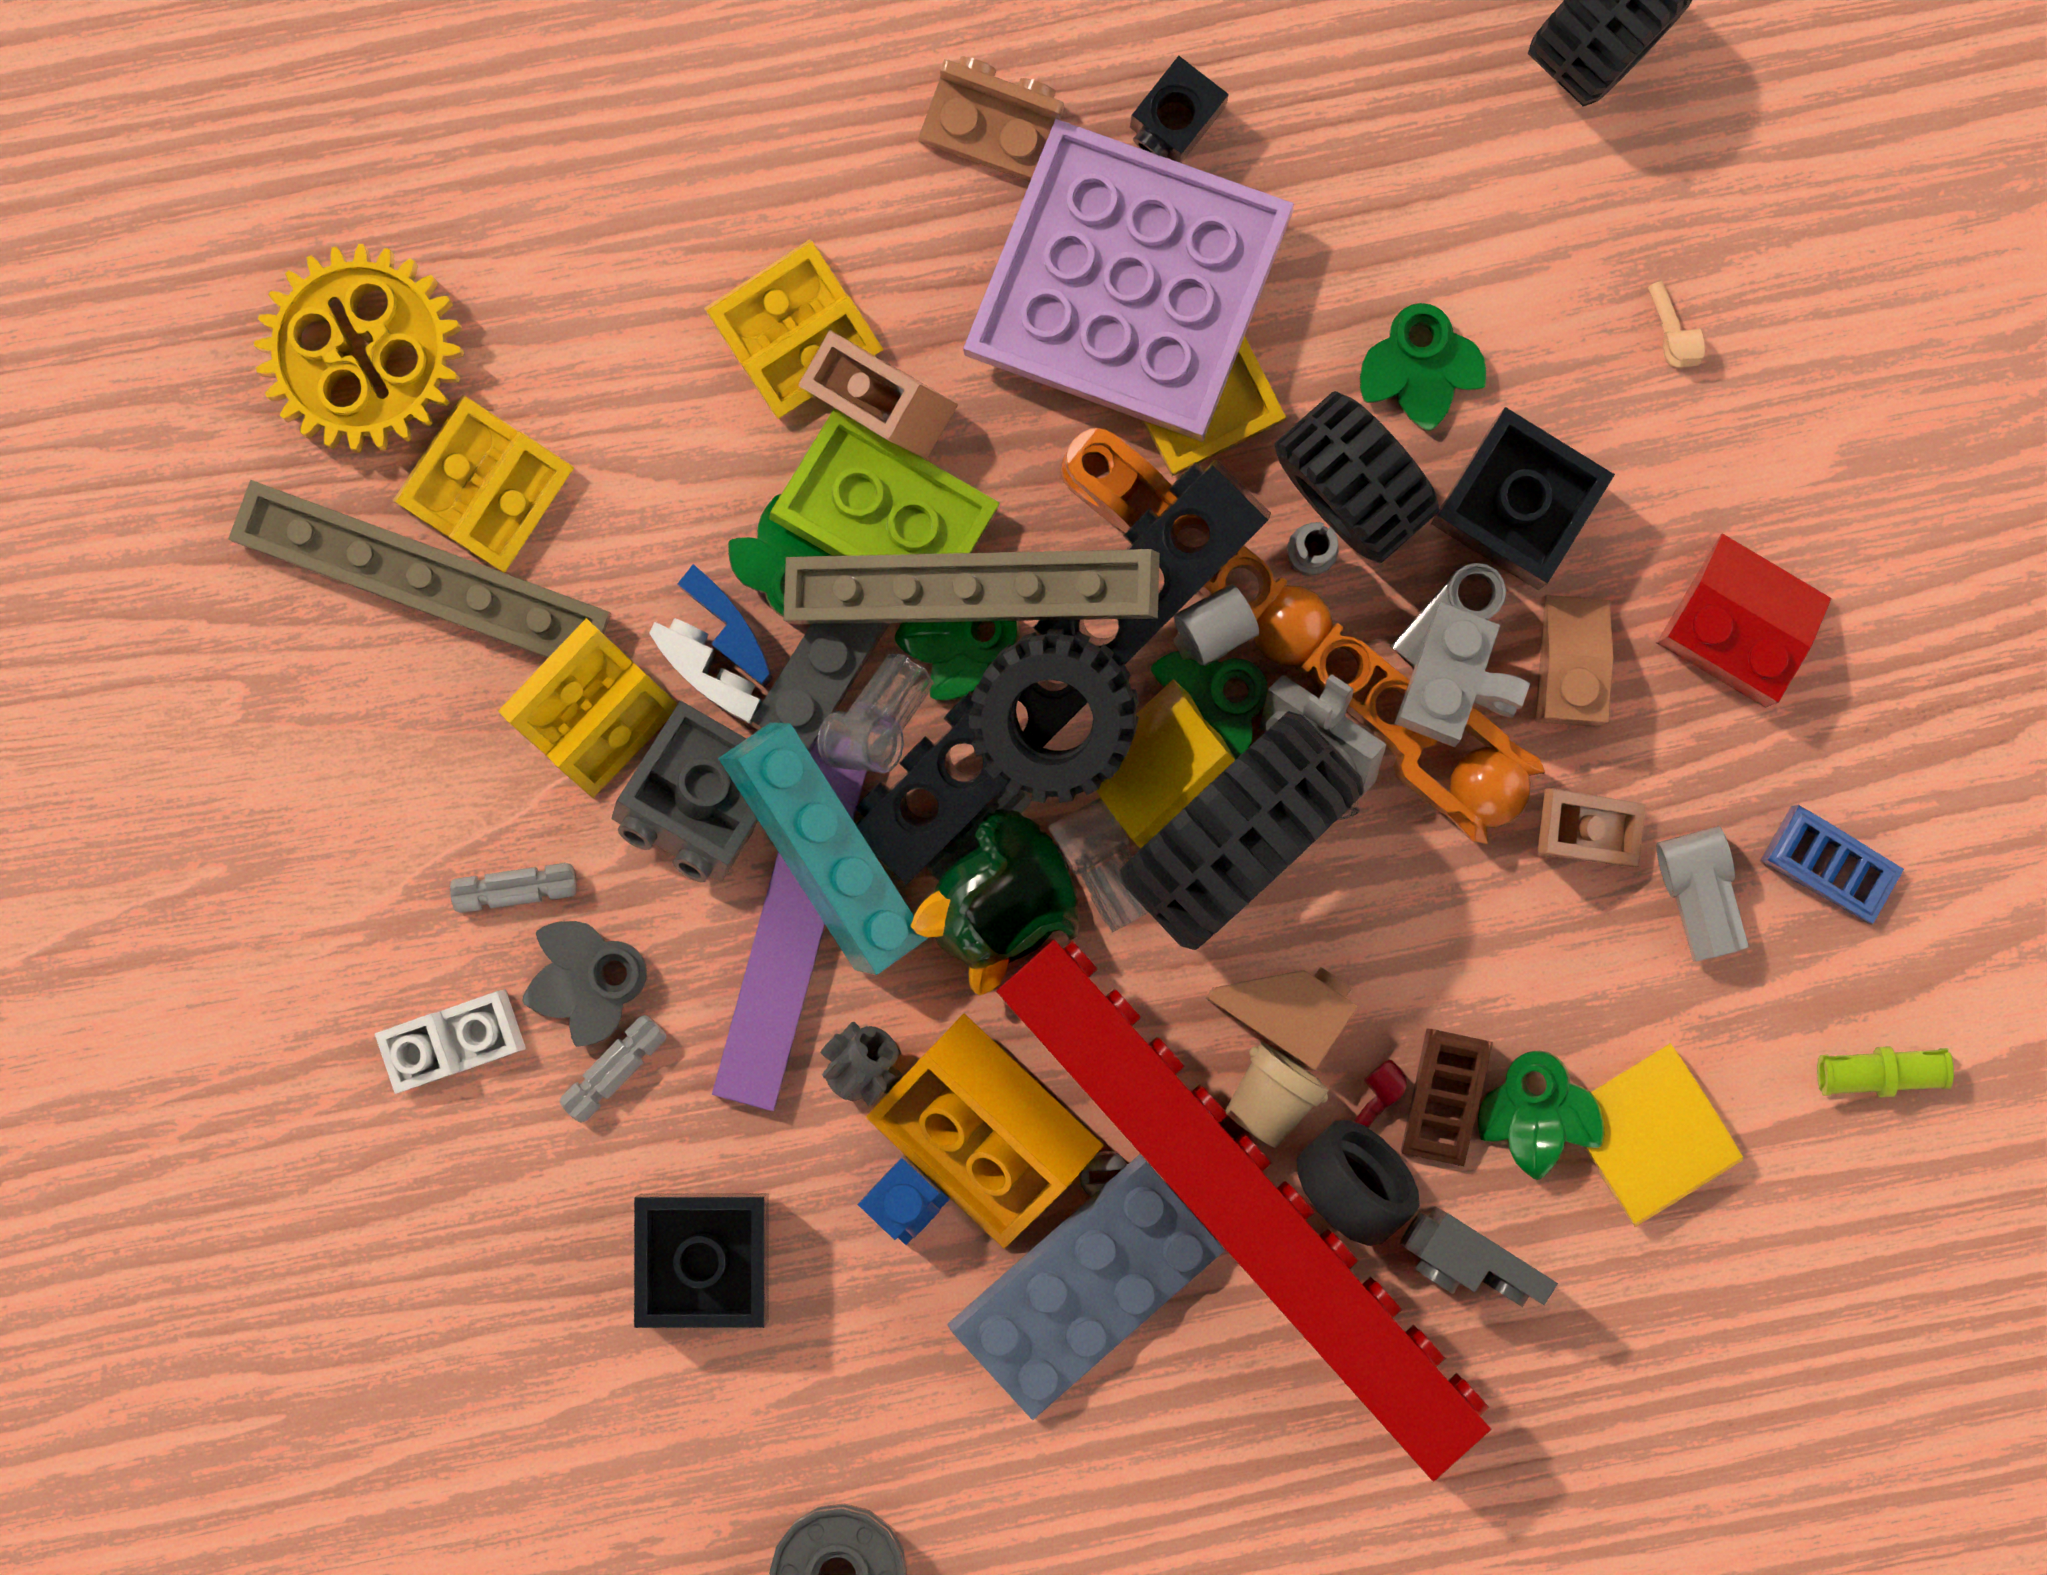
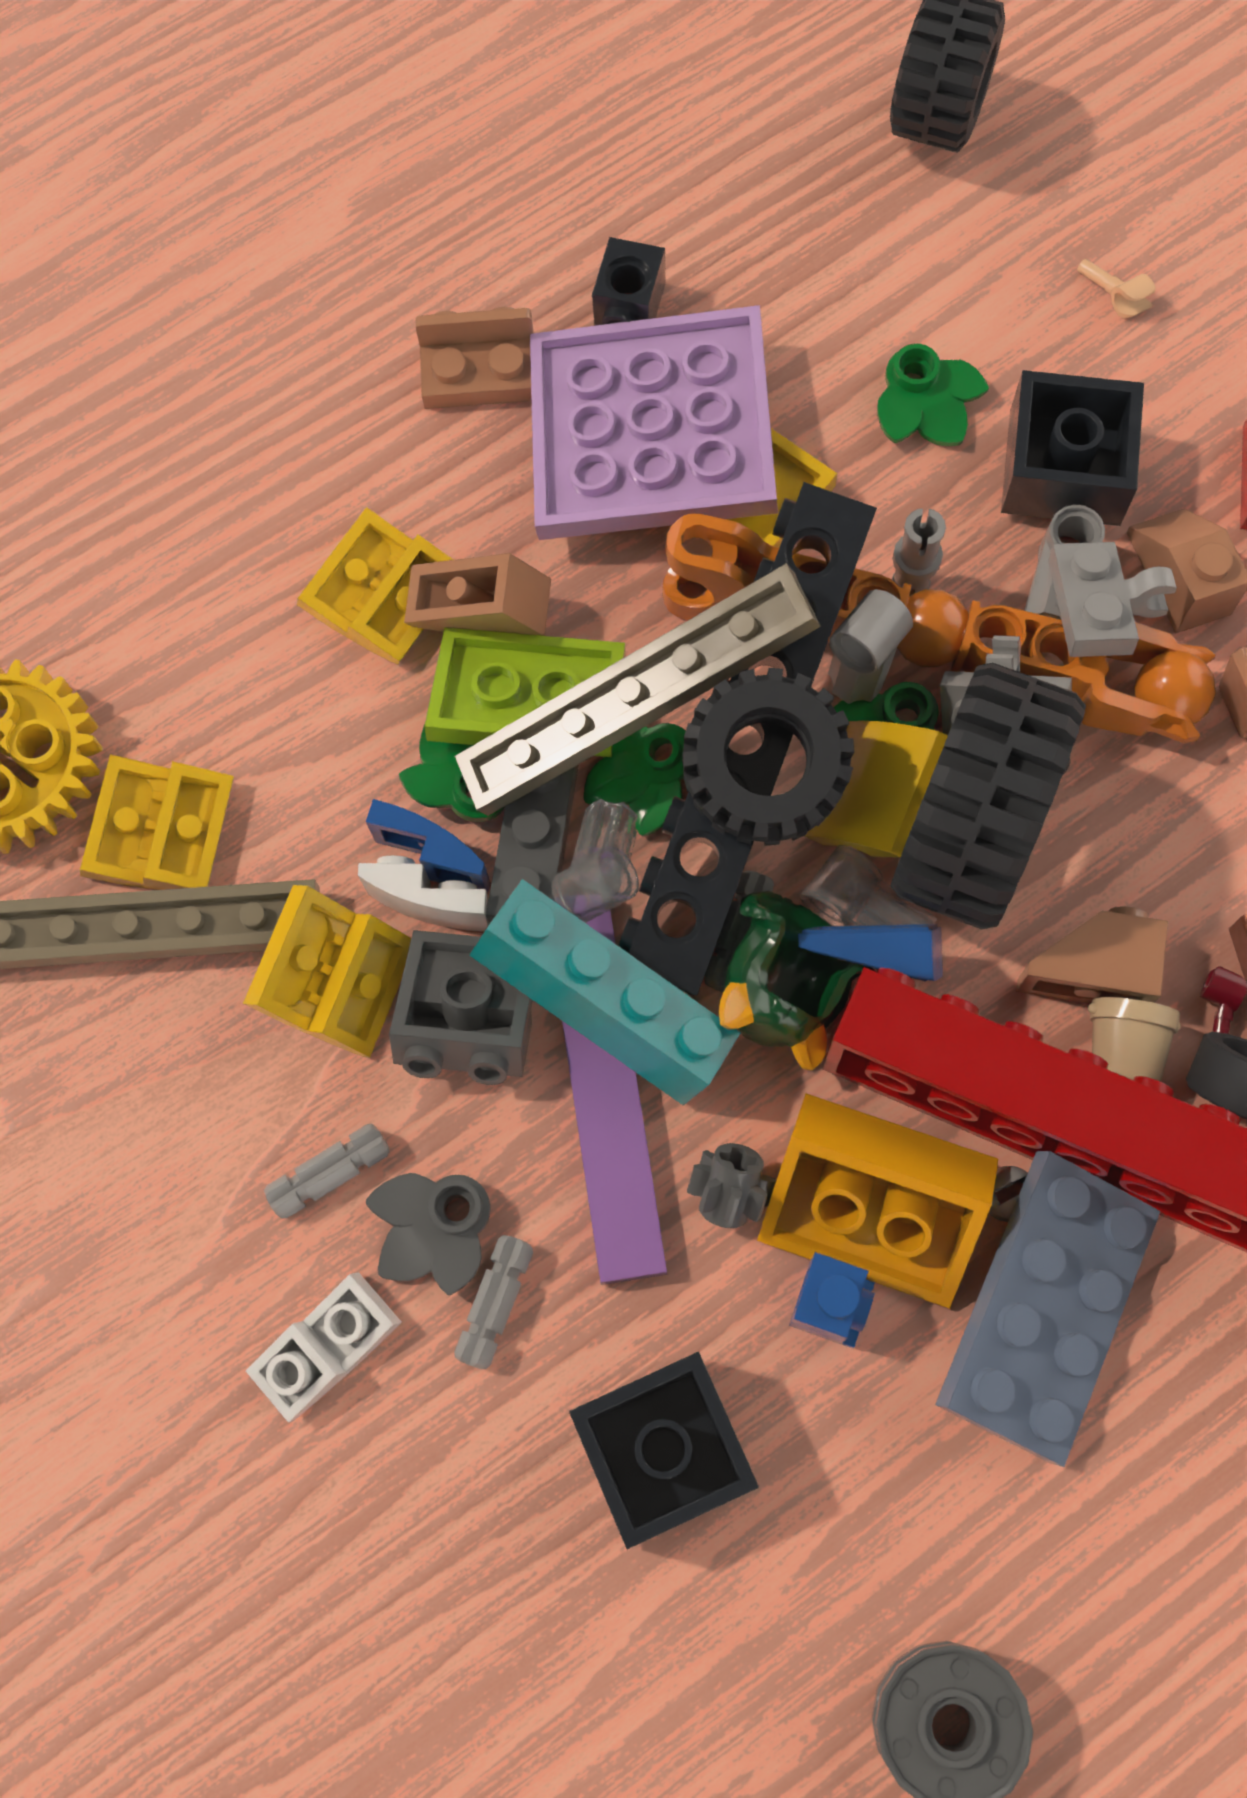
camera: 15 degrees left, 15 degrees down
(1092, 919) = (904, 947): none -> blue slope
(1357, 476) = (929, 460): black tyre -> none

